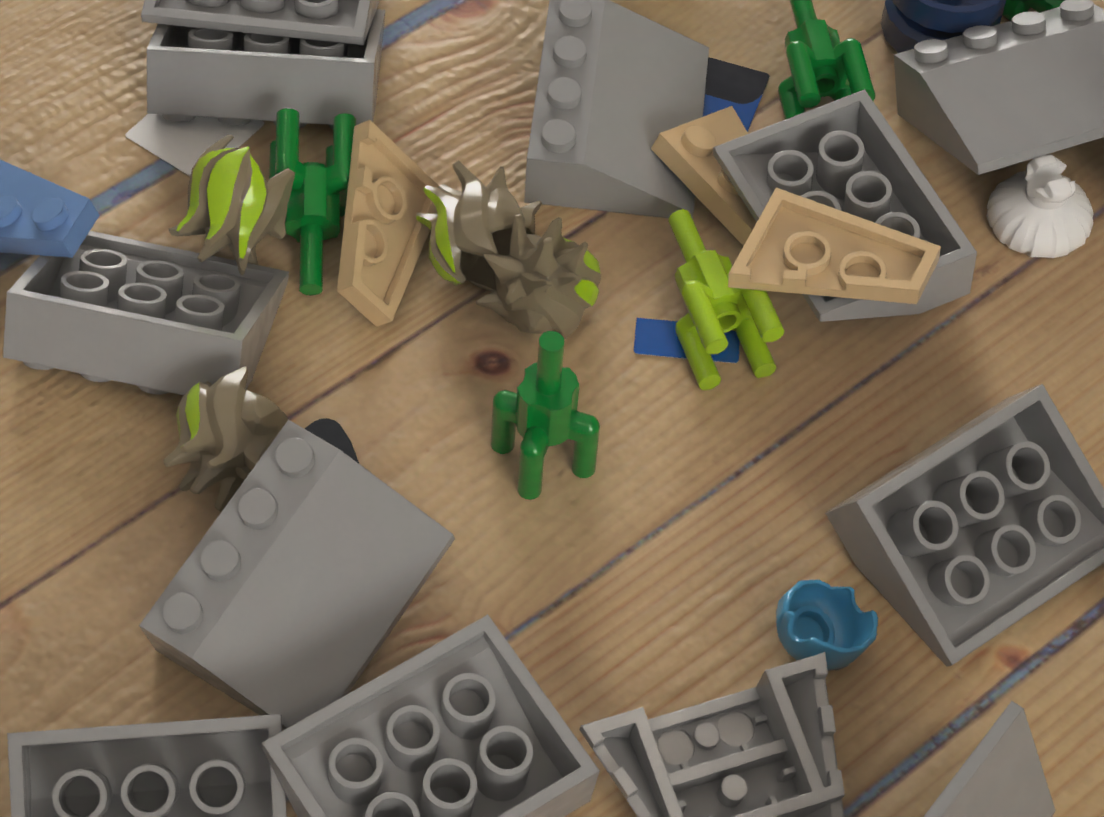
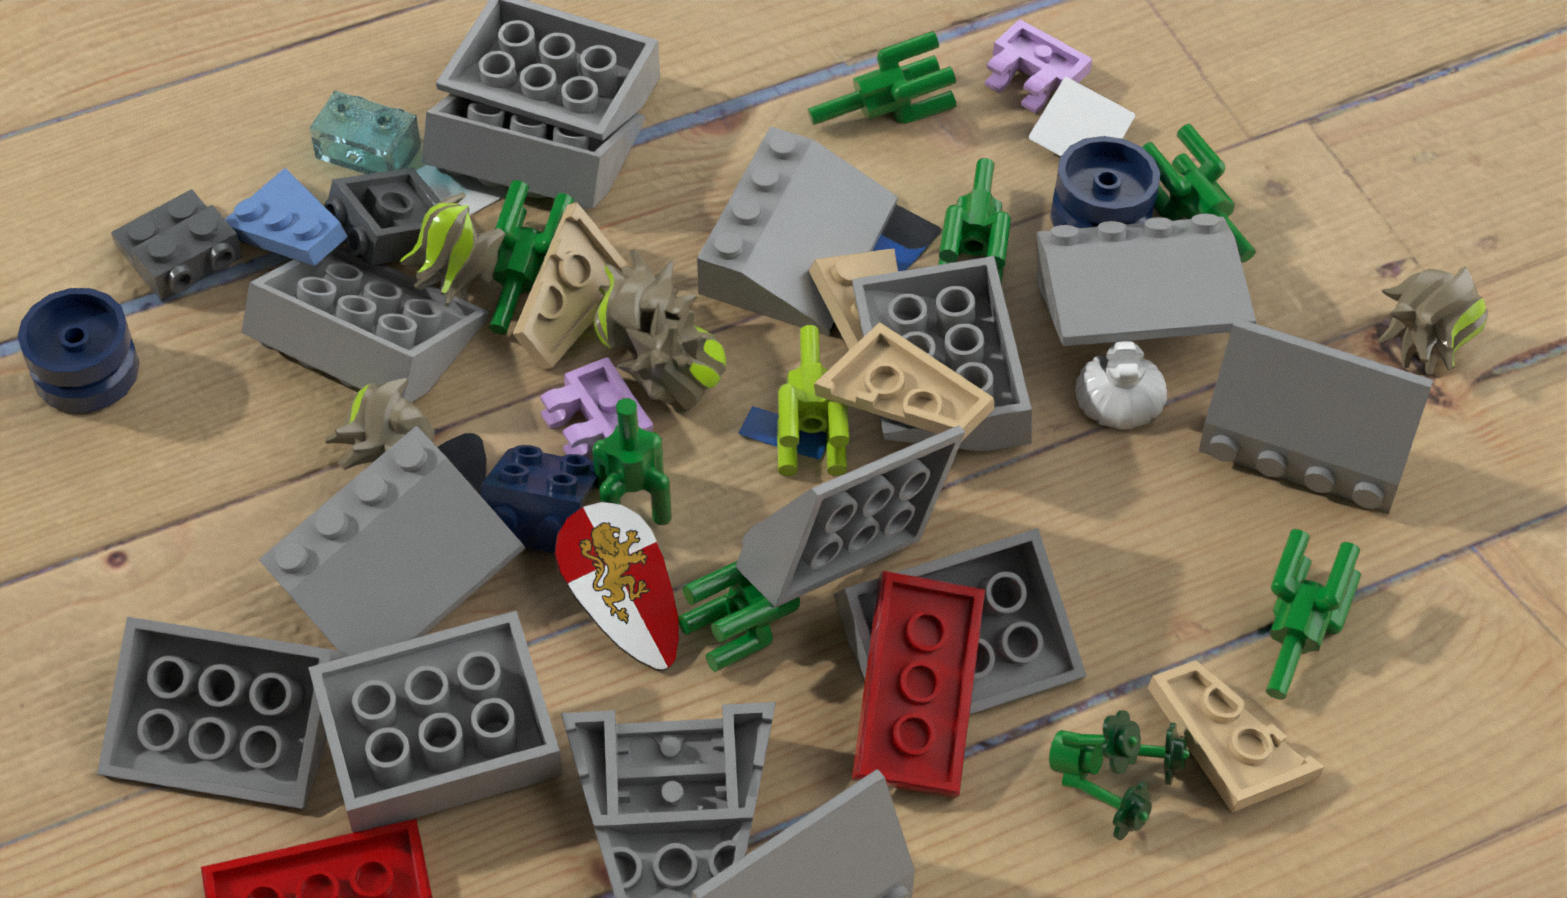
camera: 20 degrees right, 0 degrees up
(66, 95) = (364, 135): none -> clear light blue brick
(130, 179) = (381, 212): none -> dark grey plate
(446, 472) = (538, 492): none -> dark blue bracket
(470, 347) = (595, 392): none -> lavender plate
(578, 553) = (621, 581): none -> shield
(739, 543) = (745, 610): none -> green plant
(824, 619) = (795, 681): dark azure hair -> none
(826, 425) = (848, 521): none -> light grey slope
(971, 593) = (919, 684): none -> red tile

